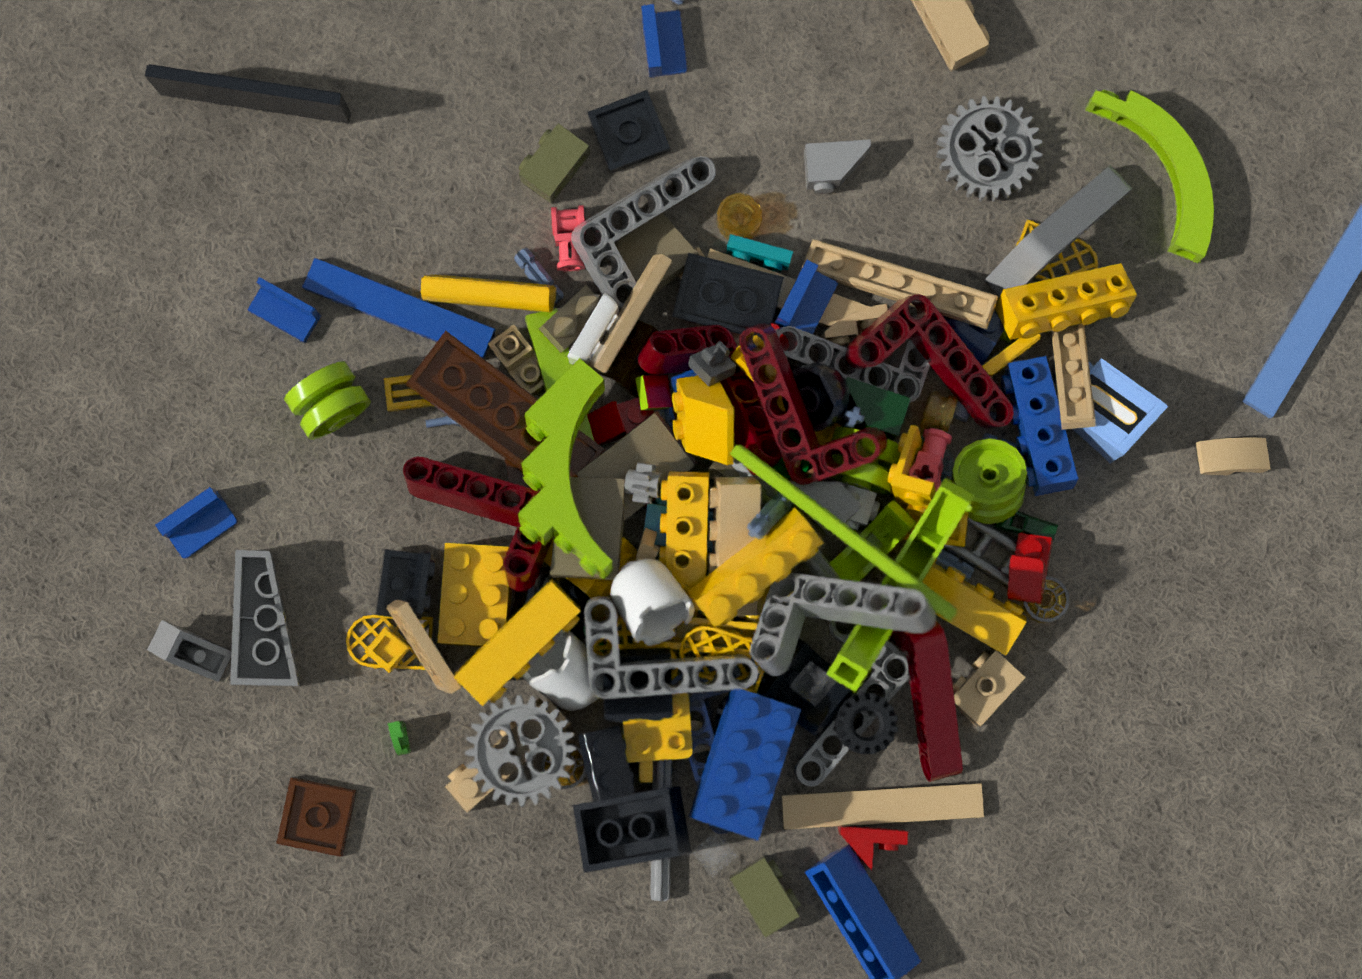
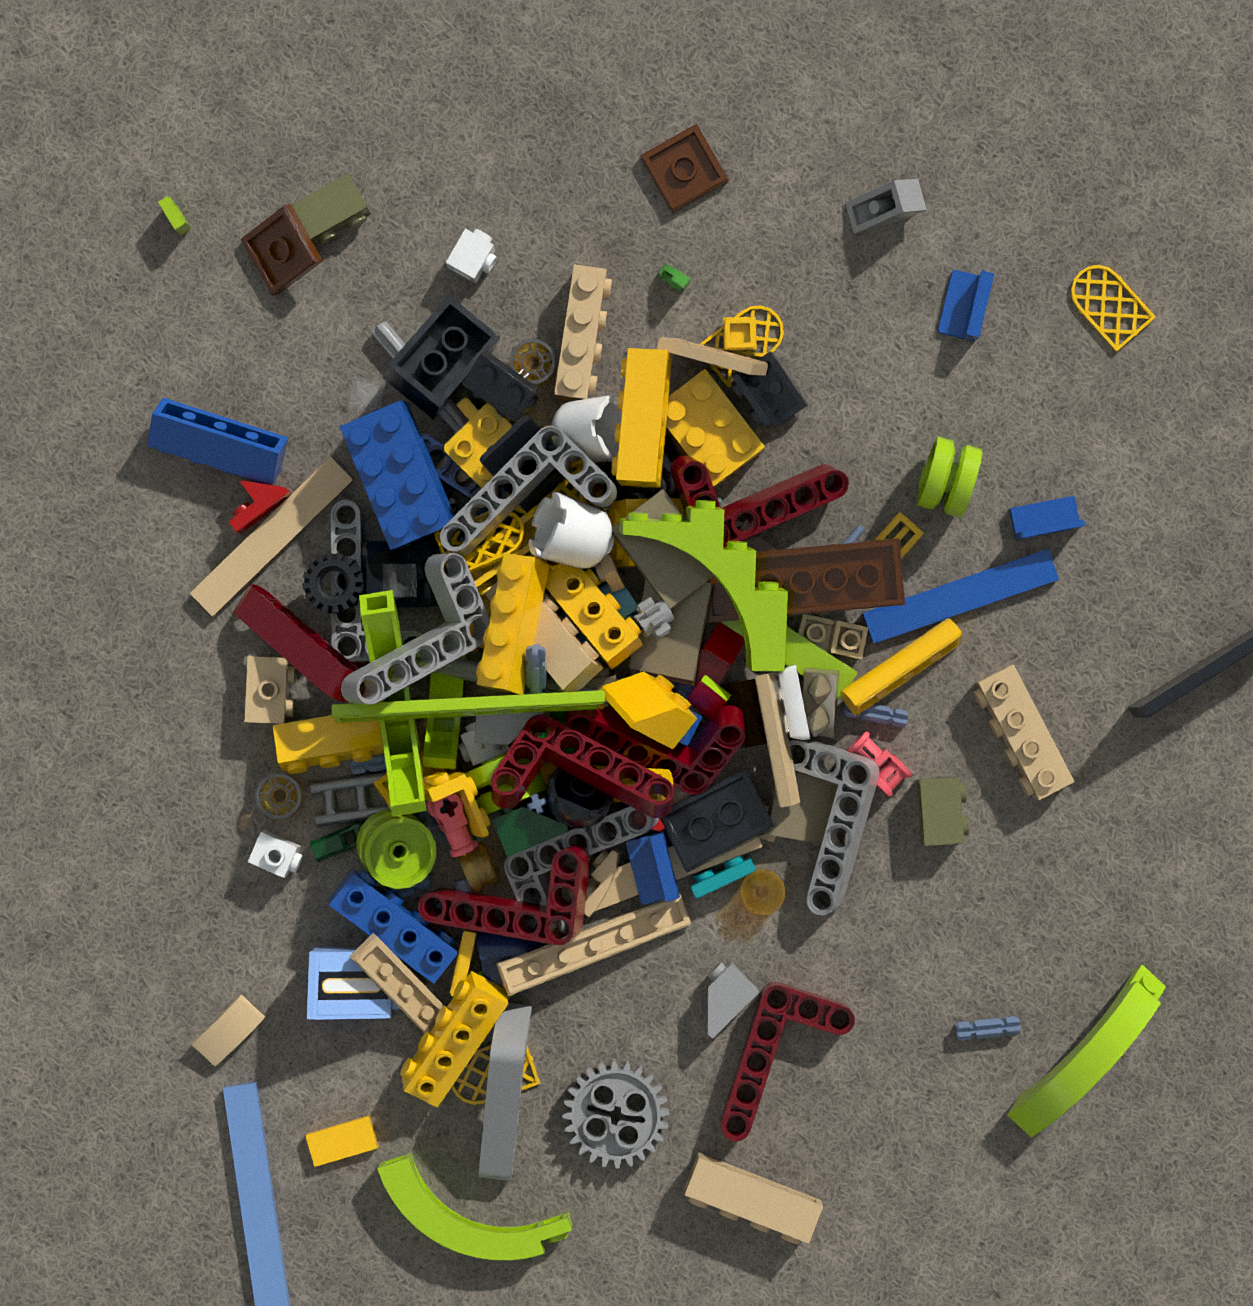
camera: 145 degrees right, 5 degrees up
(81, 427) = (1121, 284): none -> yellow window
(260, 631) = (846, 265): light grey wedge -> none
(442, 168) = (1023, 732): none -> tan brick
(490, 759) = (588, 316): light grey gear -> none
(538, 891) = (472, 255): none -> white brick
(628, 131) = (906, 887): black tile -> none
(663, 42) = (941, 982): blue panel -> none
(713, 364) = (678, 752): dark grey tile -> none
(765, 896) = (302, 395): olive brick -> none
(832, 101) = (768, 1045): none -> dark red beam
(1029, 568) = (310, 808): red slope -> none
(1085, 557) = (275, 854): none -> white brick
(1213, 302) = (342, 1140): none -> yellow tile

